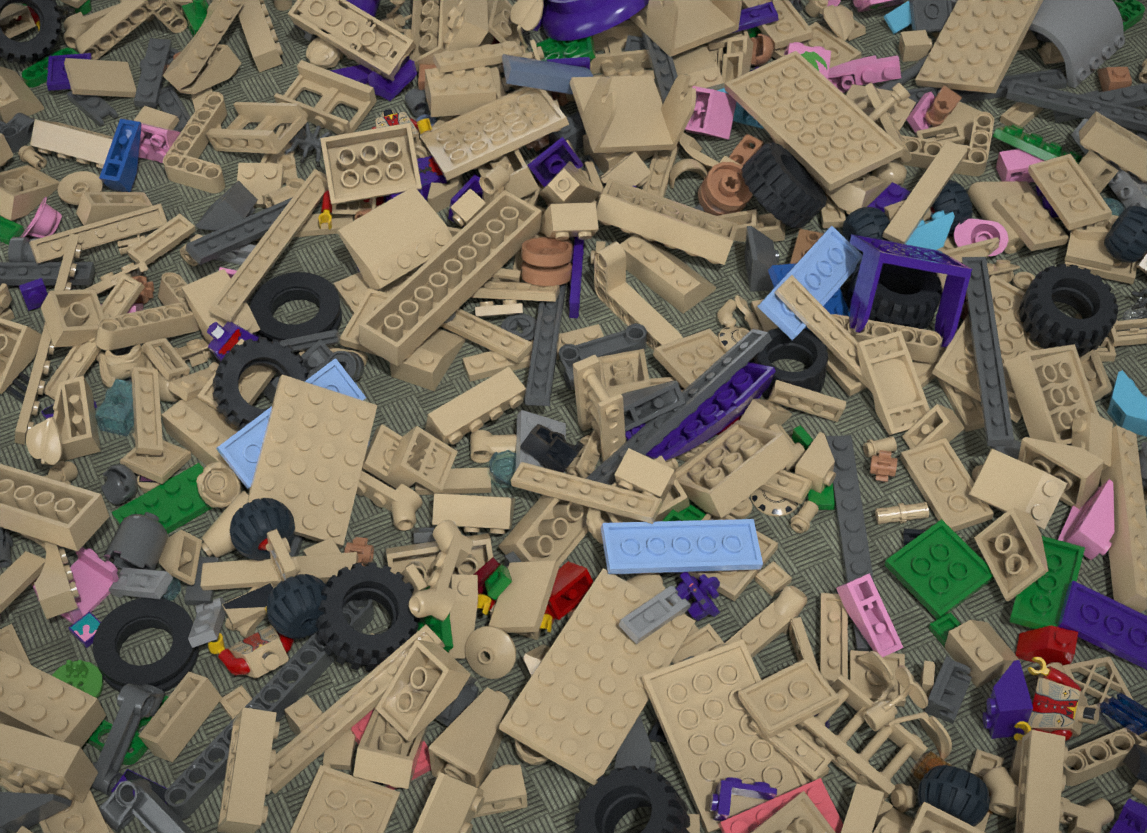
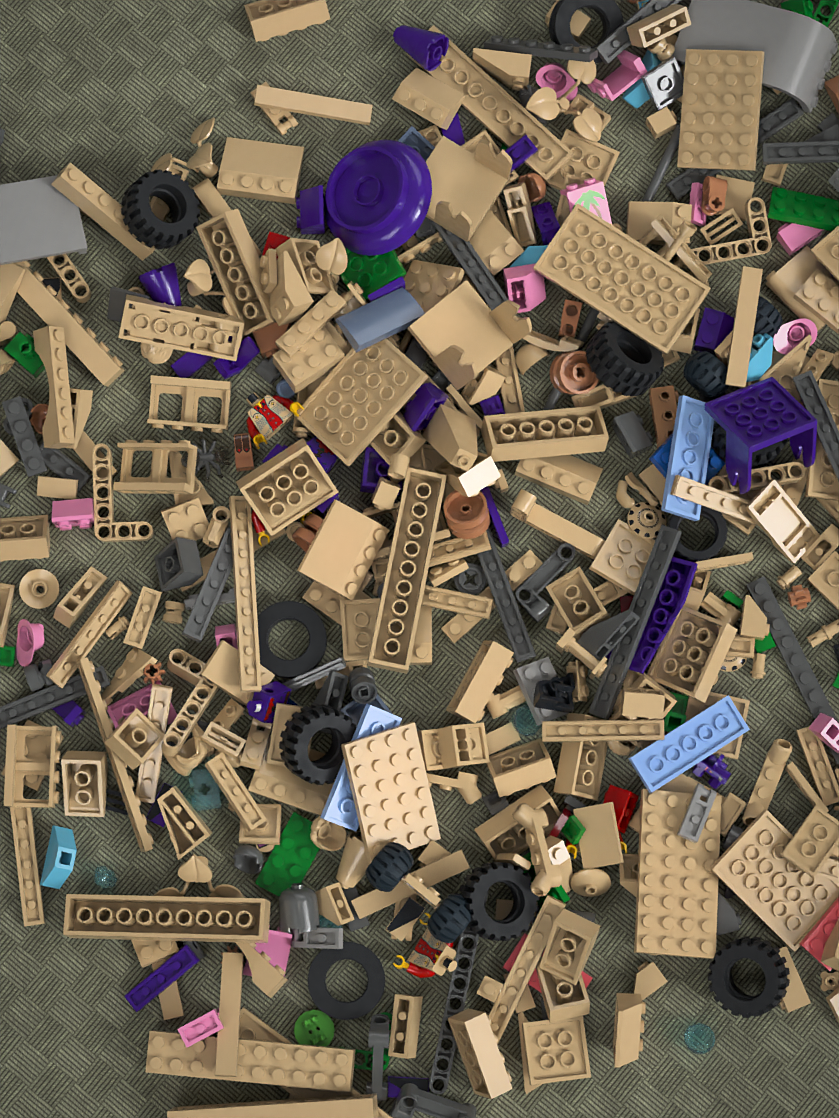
camera: 25 degrees left, 30 degrees up
(85, 629) = (295, 983): tile -> none
(122, 159) = (62, 549): blue slope -> none
(207, 622) = (383, 948): light grey plate -> none
(235, 701) = (433, 993): tan tile -> none
(364, 551) = (456, 840): nougat gear -> none
(441, 194) = (340, 472): tan slope -> none
(471, 740) = (612, 958): tan slope -> none
(721, 800) = (798, 931): dark purple bracket -> none
(773, 578) = (757, 728): tan tile -> none
(864, 71) = (634, 176): bright pink slope -> none

